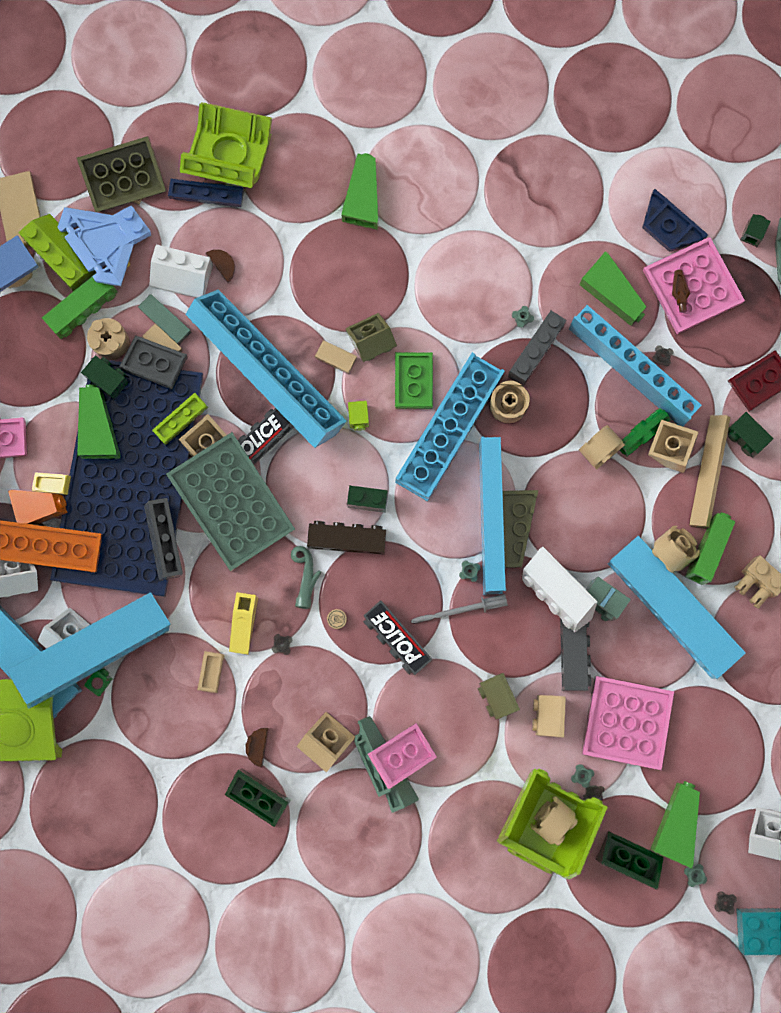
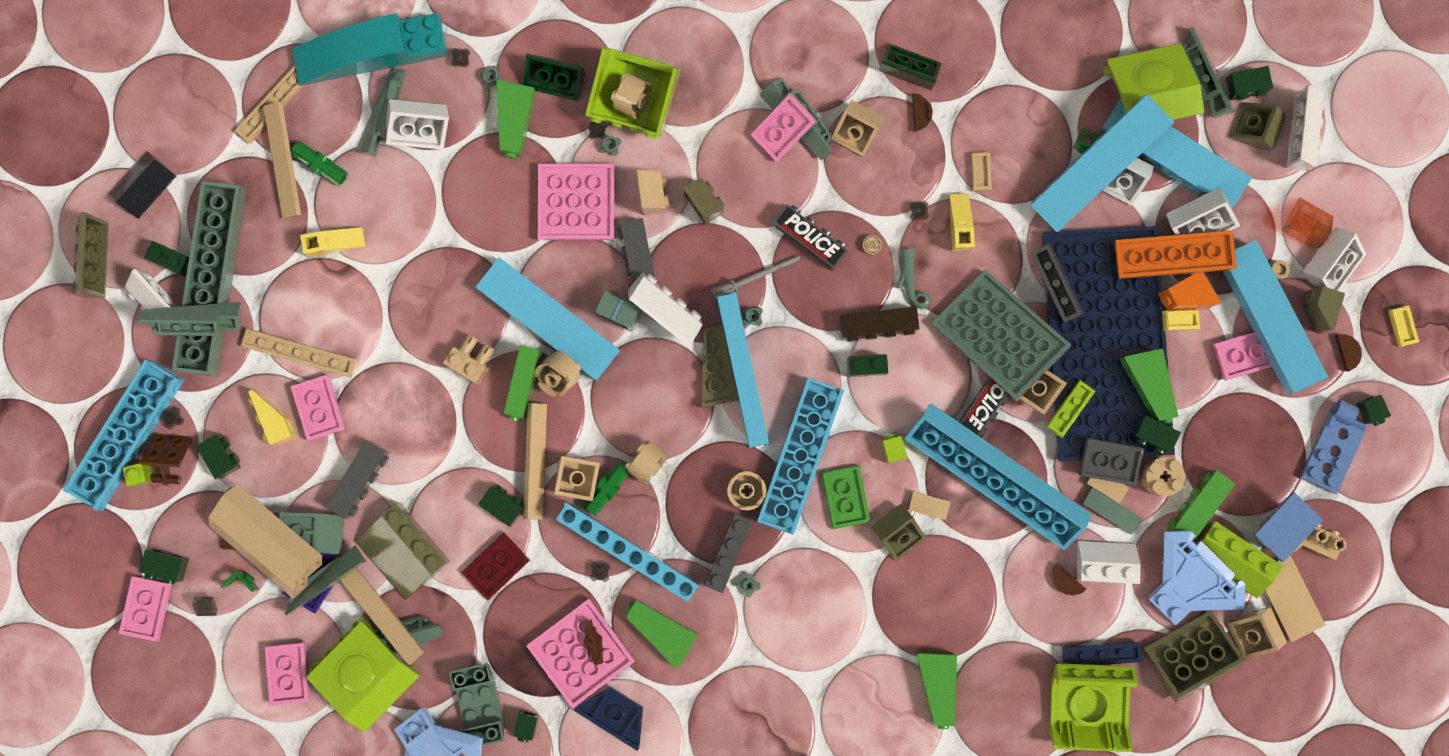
camera: 165 degrees right, 5 degrees up
(57, 183) = (1257, 633): none -> tan slope

